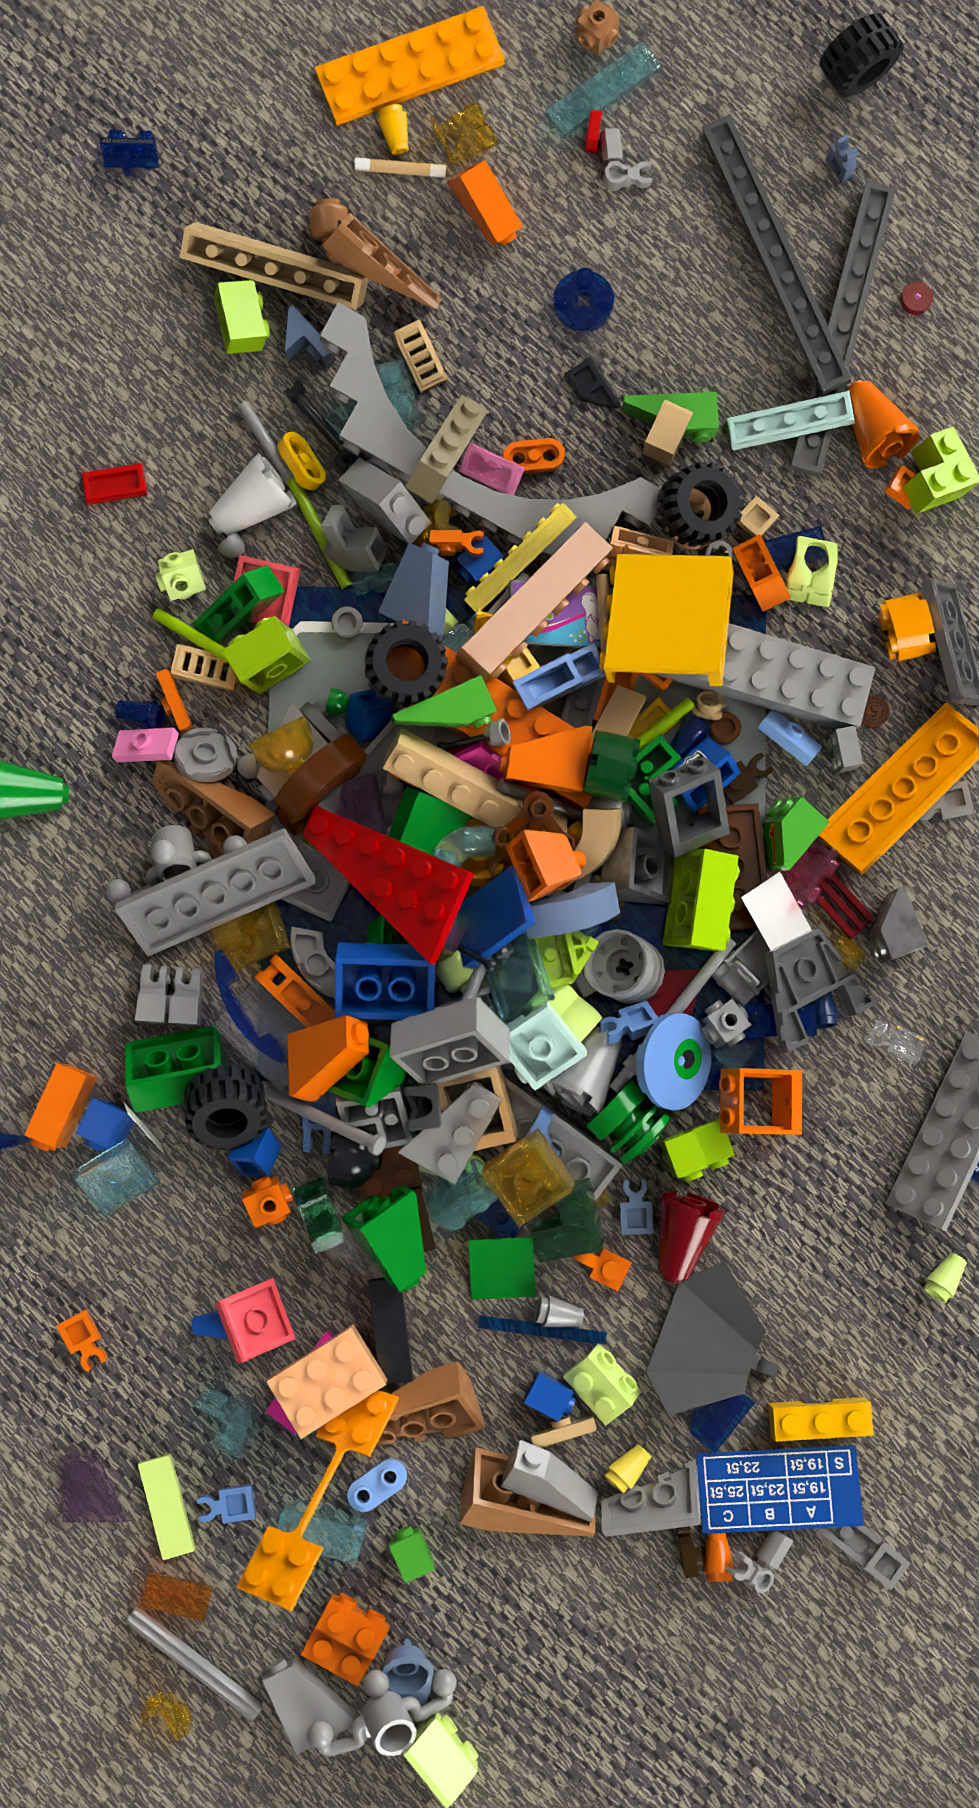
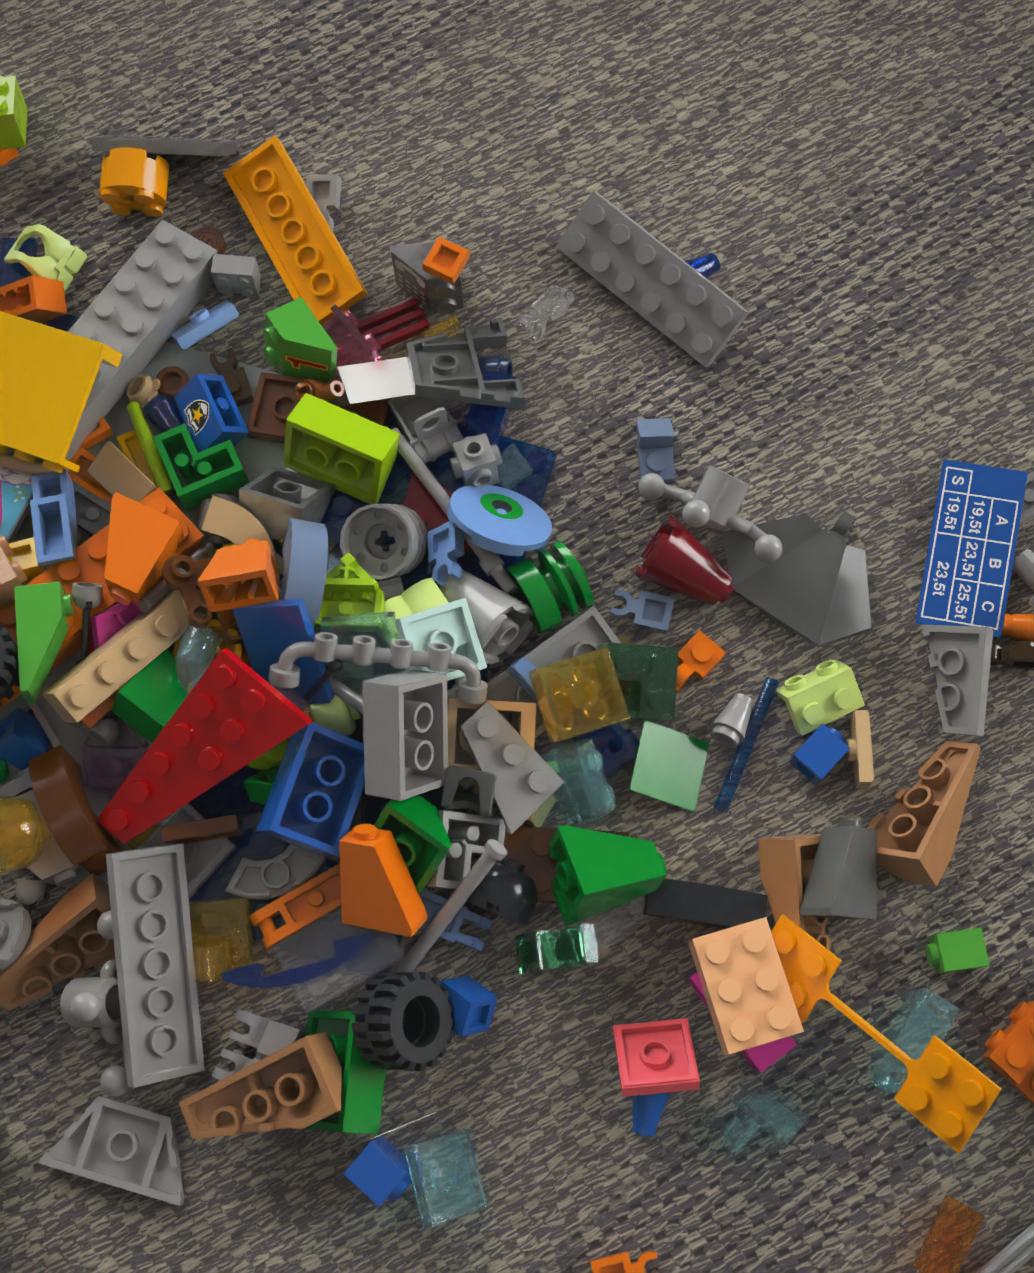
camera: 70 degrees left, 10 degrees down
(60, 1107) = (343, 1222): orange brick -> none
(70, 913) = (122, 1149): none -> light grey wing
(144, 1029) = (272, 1094): none -> medium nougat wedge
(166, 1506) = (842, 1226): yellowish green tile -> none
(233, 1504) = (858, 1142): medium blue plate -> none
(264, 1211) = (515, 1013): orange brick -> none
(332, 894) = (203, 830): none -> reddish brown tile
(376, 1484) = (871, 971): light blue plate -> none
(446, 1441) = (843, 874): none -> dark grey slope
(507, 986) = (363, 652): none -> light grey bar
(548, 1481) = (909, 779): light grey slope -> none
(611, 765) = (164, 484): dark green brick -> none
(627, 1469) = (916, 694): light yellow cone -> none
(696, 1149) = (600, 530): lime brick -> none
(700, 829) = (257, 454): dark grey window -> none
(717, 1420) = (887, 591): clear blue wing -> none
(742, 1248) = (715, 506): none -> light grey wheel
(748, 863) = (326, 392): none -> dark orange arm
(785, 1087) = (558, 427): orange window -> none
(791, 1178) = (655, 448): none -> sand blue slope
(819, 1421) = (910, 489): yellow arch -> none
(900, 942) = (446, 260): none -> orange plate
(945, 1278) = (795, 331): yellowish green cone -> none

